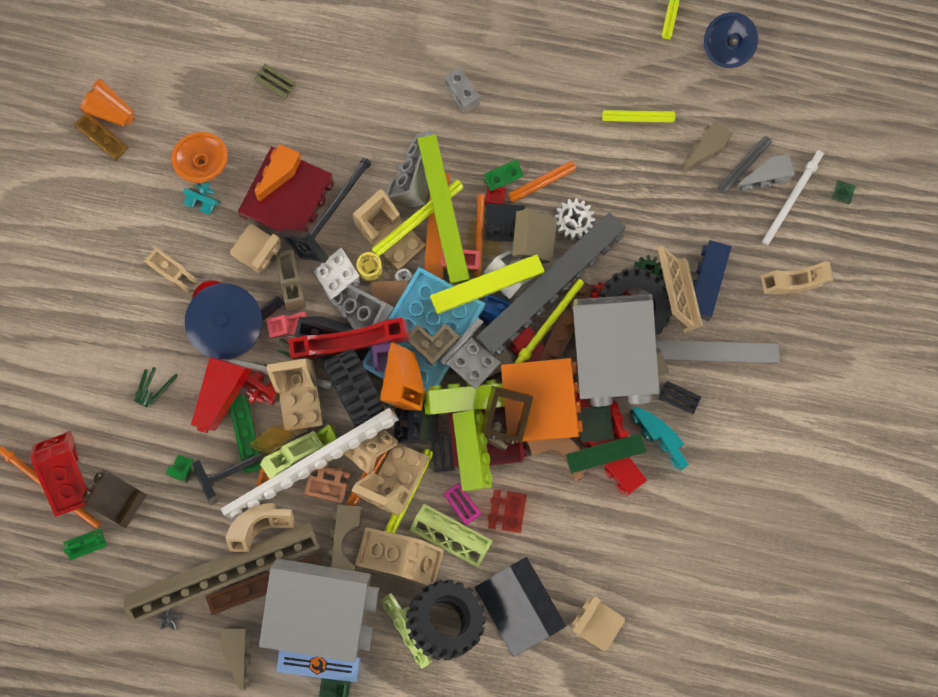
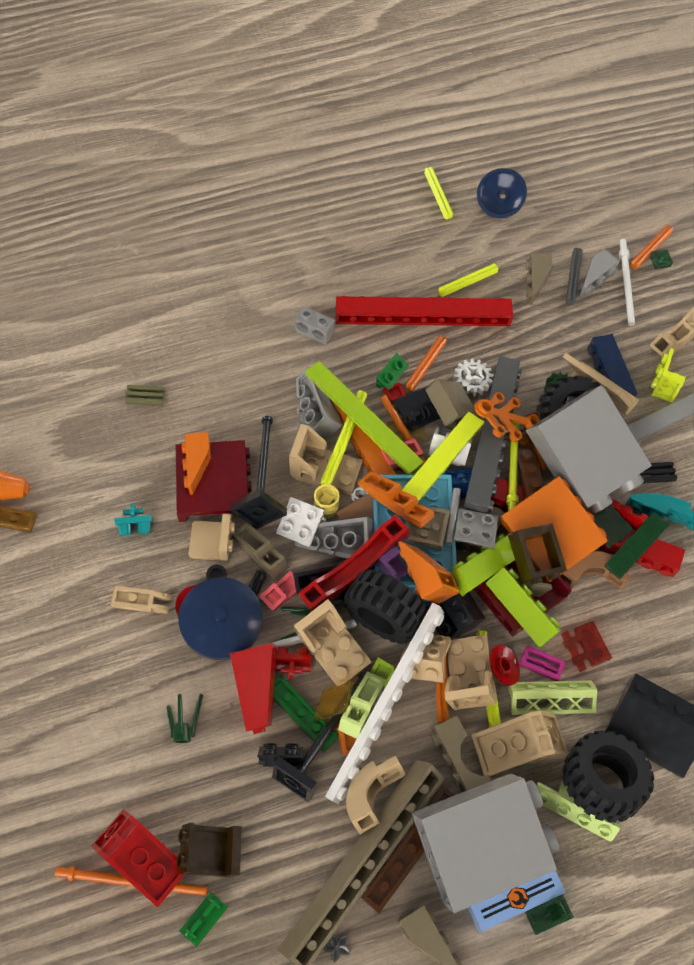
camera: 30 degrees left, 15 degrees down
(181, 468) = (259, 782): green panel -> none
(195, 149) = (110, 479): orange dish -> none
(212, 459) = (270, 751): none -> black hinge
(244, 280) = (215, 572): none -> black tile
(327, 489) = (412, 720): nougat plate -> none
(420, 301) = (391, 496): none -> orange slope
(433, 490) = (504, 665): none -> red dish
(444, 468) = (499, 622): black tile -> none
(567, 275) = (485, 409): none -> orange plant
(573, 128) = (423, 311): none -> red brick
(747, 324) = (666, 383): none -> neon yellow bracket
(845, 173) = (651, 246): none -> orange axle

